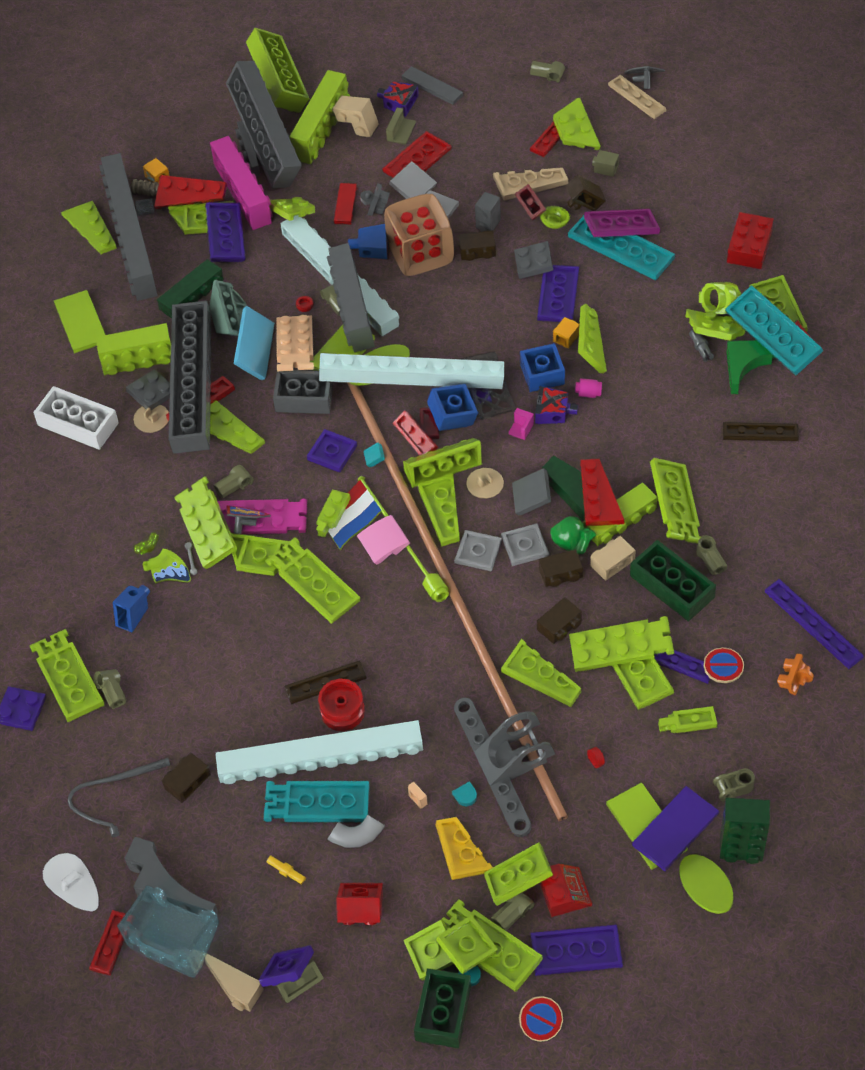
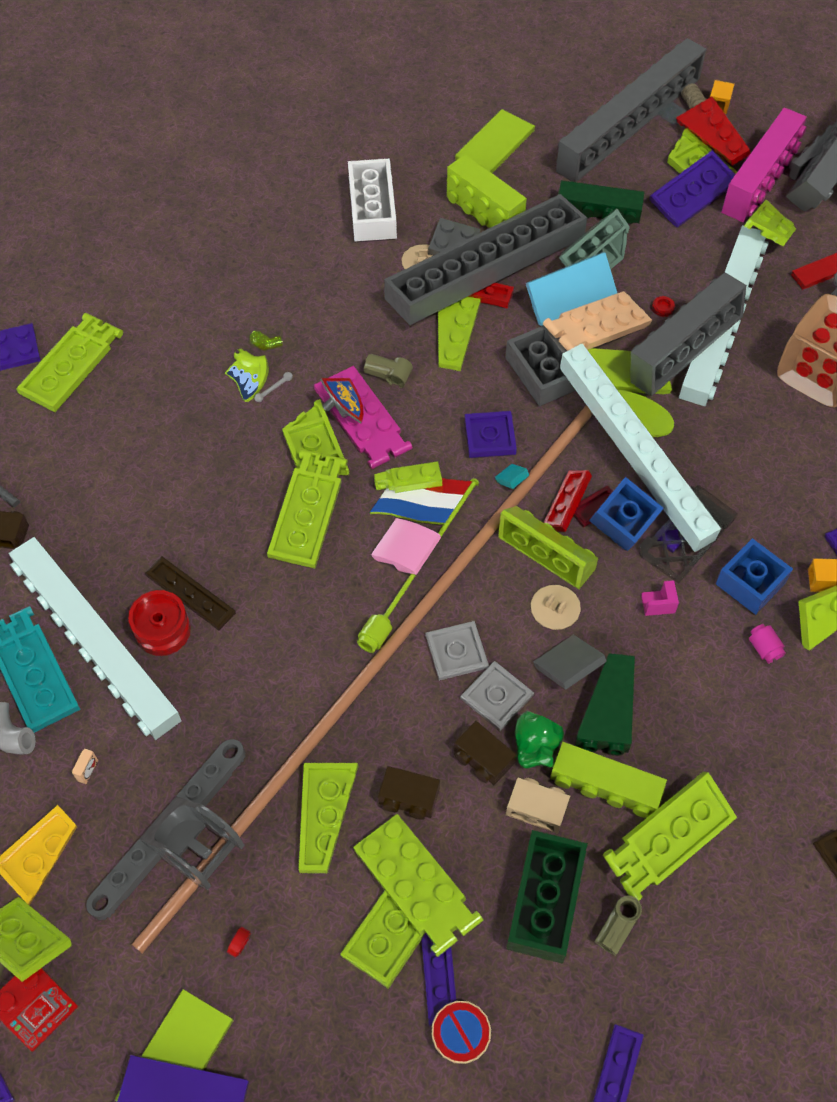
camera: 55 degrees right, 5 degrees up
(91, 226) = (614, 80): lime wing -> none
(109, 683) = (75, 400): olive piece -> none
(130, 607) = (176, 366): blue torso -> none
(205, 523) = (328, 361): lime hinge -> none
(371, 242) = (786, 315): blue torso -> none
(440, 504) = (489, 579): lime wing -> none
(465, 794) = (116, 818): teal tile -> none
(553, 406) = (710, 619): torso -> none
(598, 497) = (603, 741): red wing -> none
(689, 720) = (356, 1032): lime hinge -> none

